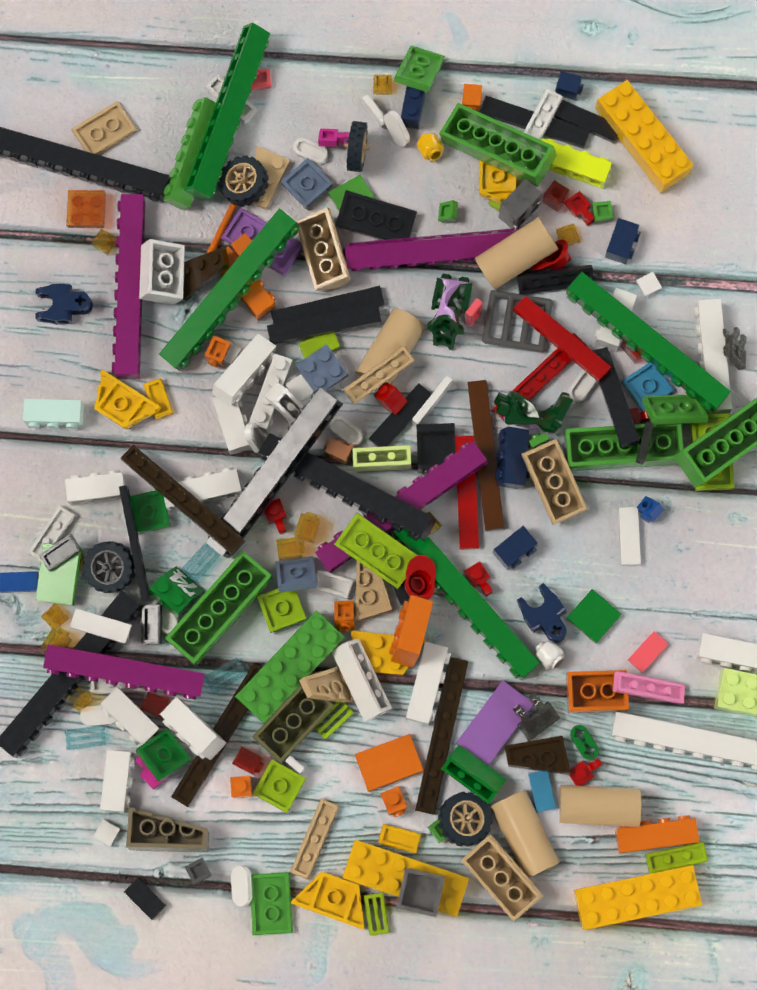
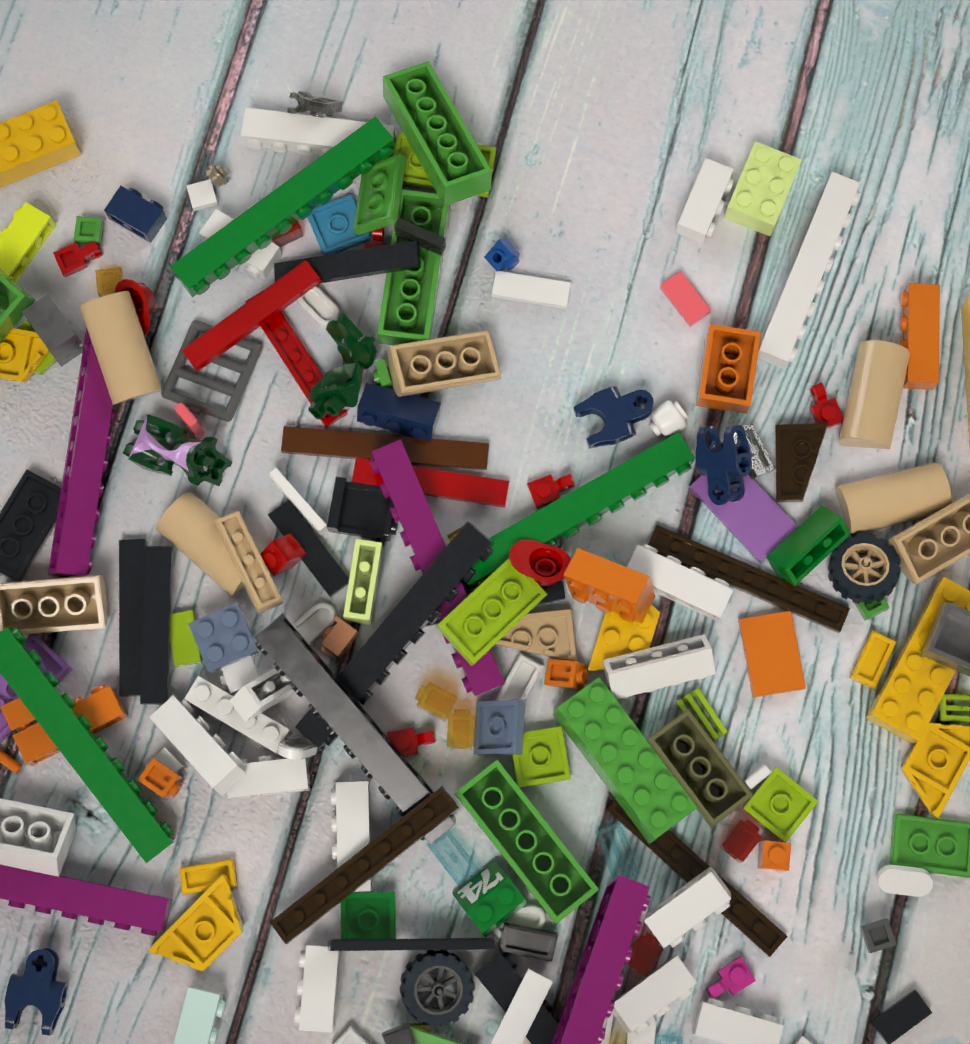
camera: 85 degrees left, 0 degrees up
(161, 833) = (819, 982): dark tan wedge -> none
(163, 755) = (713, 956): green plate -> none
(202, 269) = (37, 776): dark brown wing -> none
(314, 839) = (856, 771): tan tile -> none
(327, 686) = (661, 712): tan wing -> none
(394, 802) = (825, 656): orange bracket -> none
(447, 211) = (37, 428): bright green plate -> none
(515, 548) = (519, 433): dark blue brick -> none
(520, 697) = (723, 463): none -> dark blue piece
(541, 791) = (841, 466): dark azure tile -> none
(551, 279) = (166, 312): black plate -> none
(556, 196) = (53, 282): clear red brick -> none
(588, 740) = (789, 406): green beam -> none
(593, 616) = (626, 355): green tile -> none
(648, 687) = (735, 303): bright pink tile -> none
(666, 291) = (217, 174): none -> dark tan plate
(676, 857) = (951, 321): lime tile -> none

